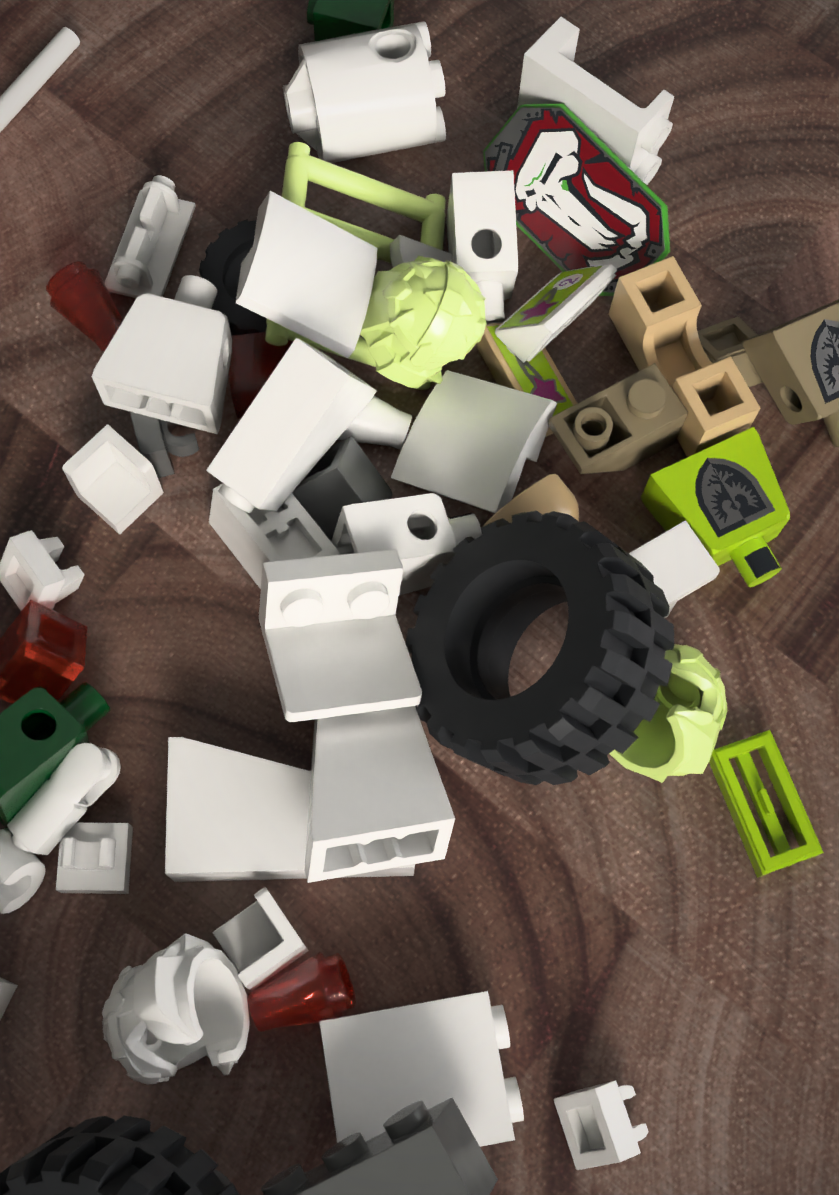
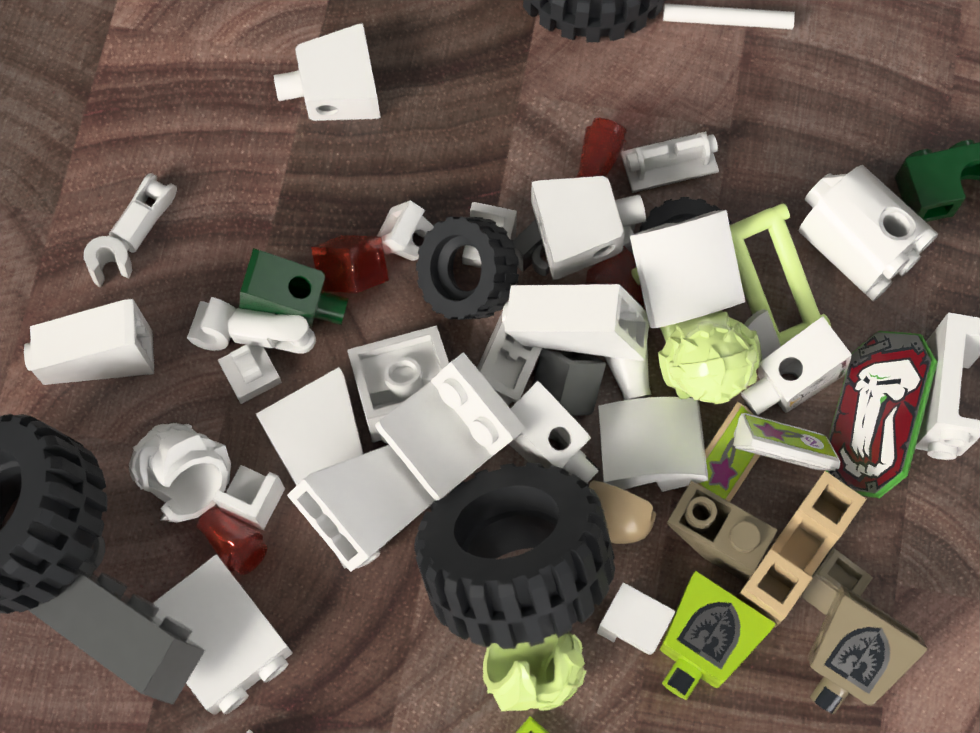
camera: 65 degrees right, 0 degrees up
(118, 563) = (437, 261): none -> black tyre
(220, 680) = (394, 371): none -> white plate

